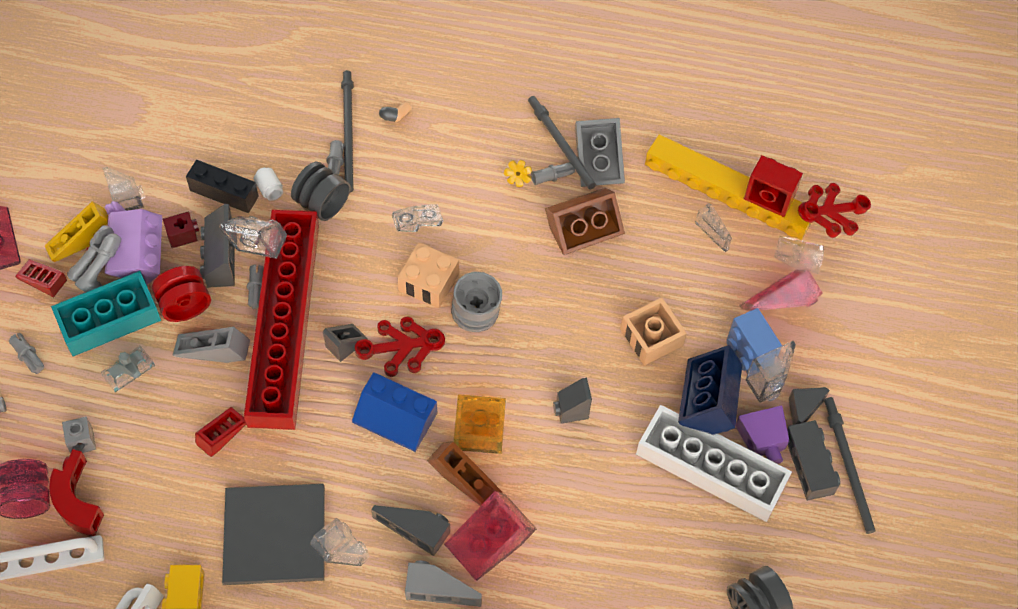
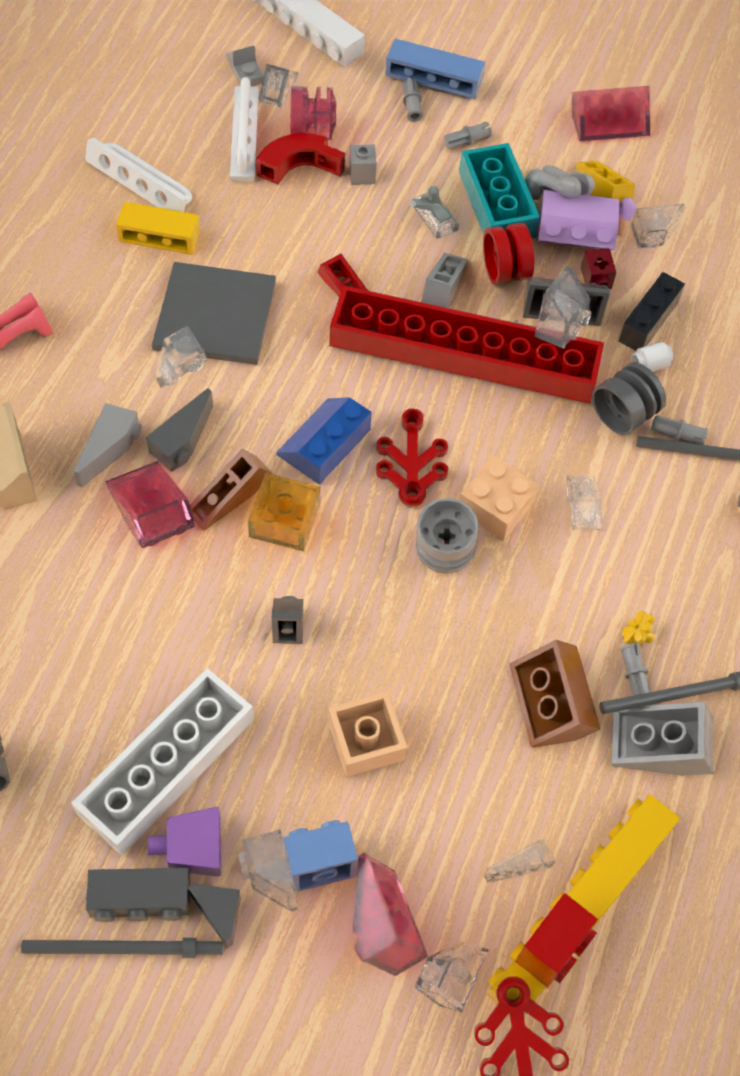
camera: 100 degrees right, 0 degrees up
(52, 288) = (543, 156): red slope -> none
(342, 340) = (426, 395): dark grey slope -> none
(711, 391) = (257, 777): dark blue slope -> none

